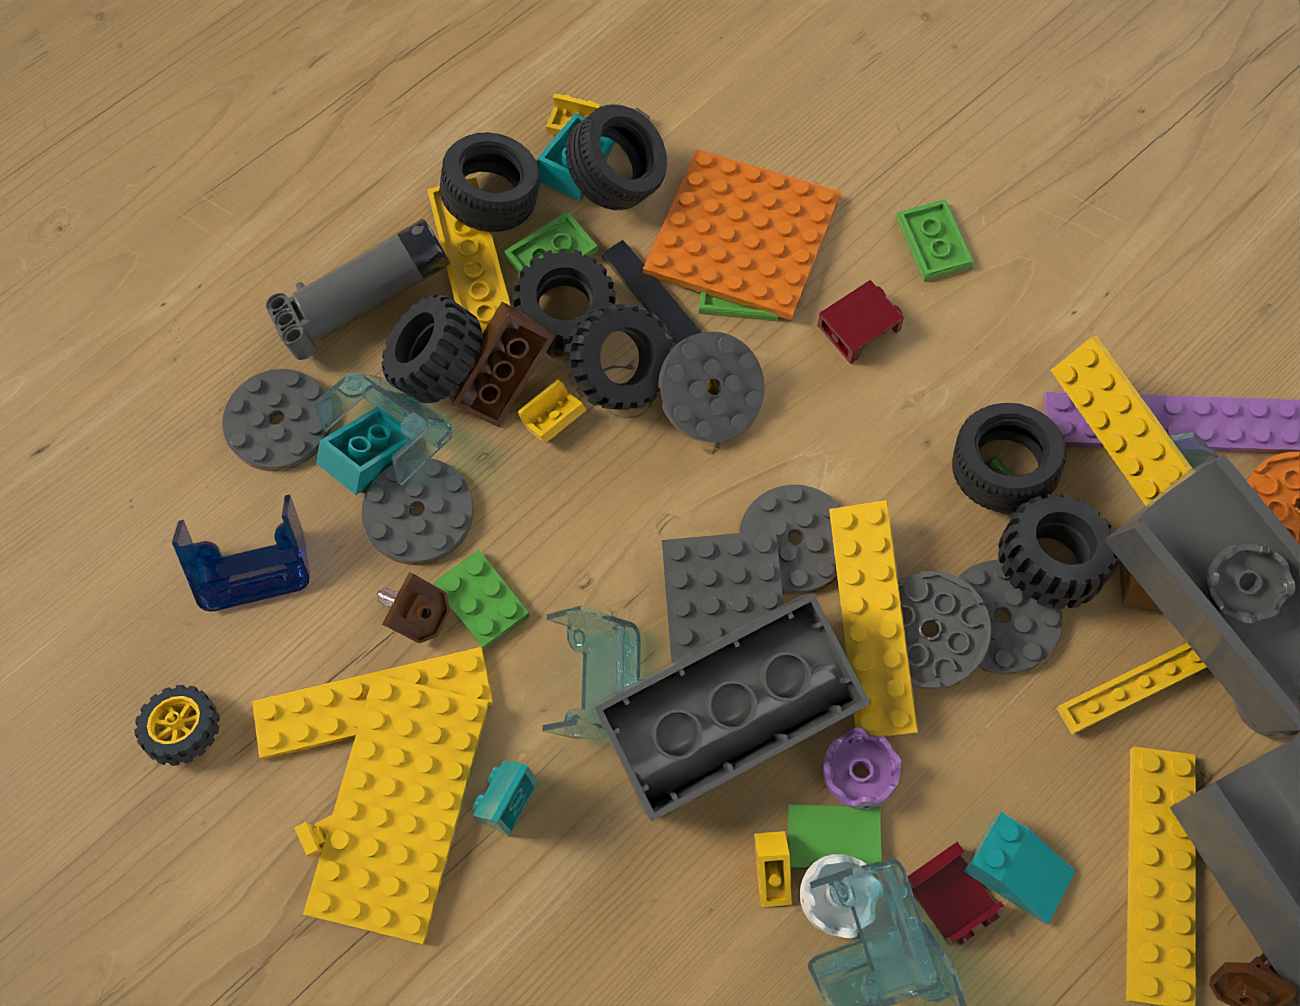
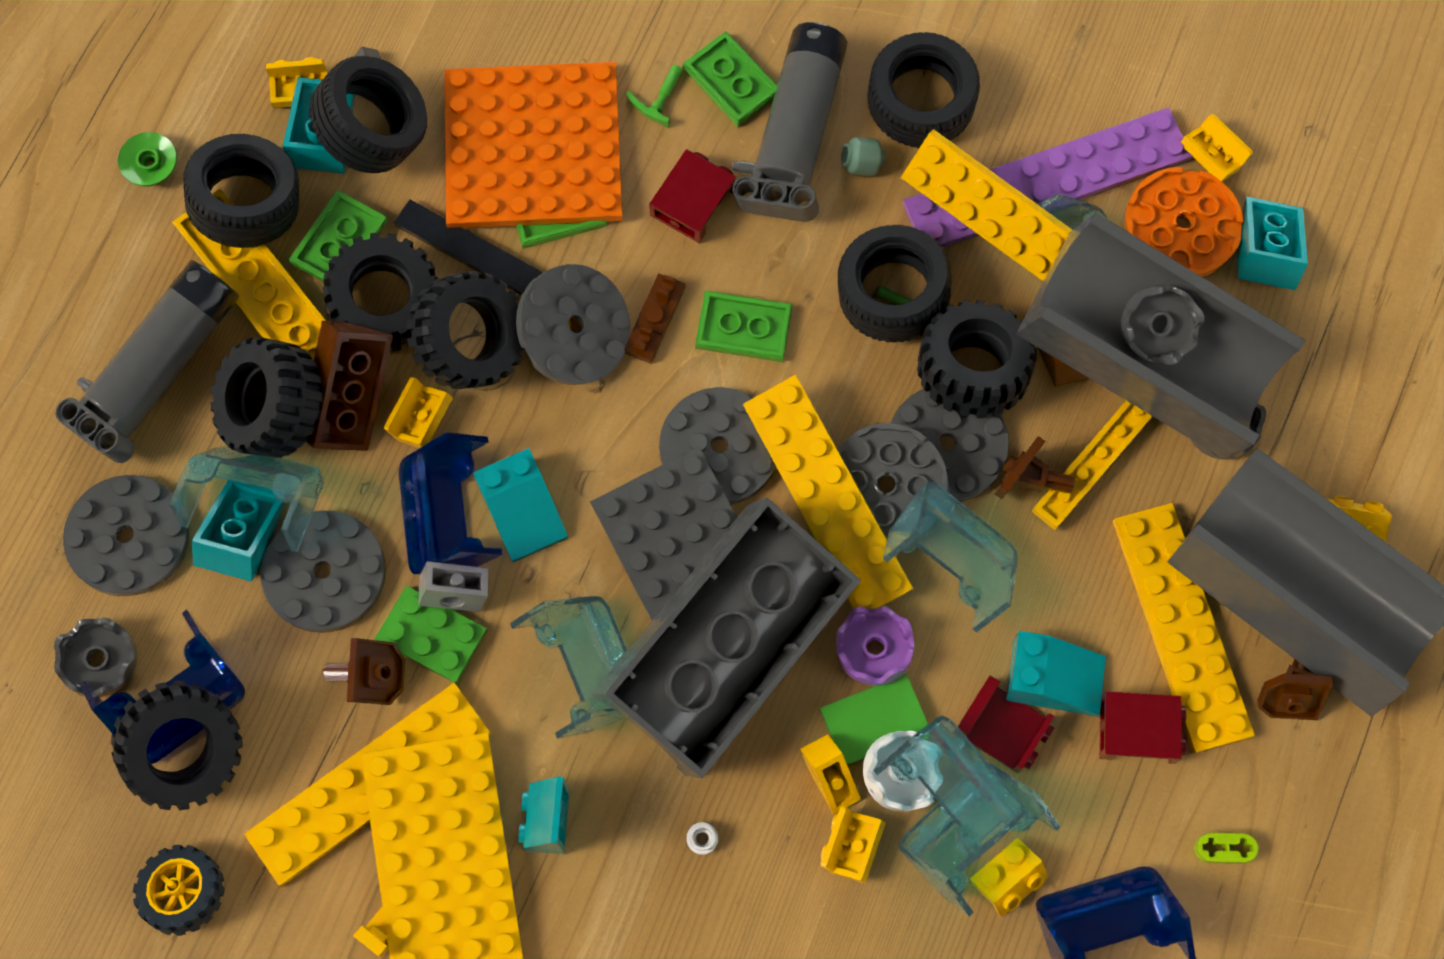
camera: 30 degrees left, 5 degrees up
(195, 492) = (77, 646): none -> dark grey plate
(218, 638) = (199, 778): none -> black tyre
(430, 128) = (145, 148): none -> bright green dish
(514, 565) = (453, 586): none -> light grey brick
(532, 494) = (434, 503): none -> clear blue windscreen
(602, 520) = (520, 505): none -> teal slope
(629, 867) = (695, 830): none -> white plate
(765, 943) = (852, 845): none -> yellow bracket
(785, 410) = (654, 318): none -> reddish brown plate
(856, 243) = (654, 111): none -> bright green piece
(859, 446) = (743, 326): none -> bright green tile
(972, 295) = (794, 127): none -> dark grey piece
(978, 711) = (960, 544): none -> clear light blue windscreen
(1024, 342) = (863, 156): none -> sand green head
(1070, 674) = (1033, 474): none -> reddish brown piece
(1086, 952) = (1142, 726): none -> dark red panel
(1114, 274) = (930, 53): none -> black tyre

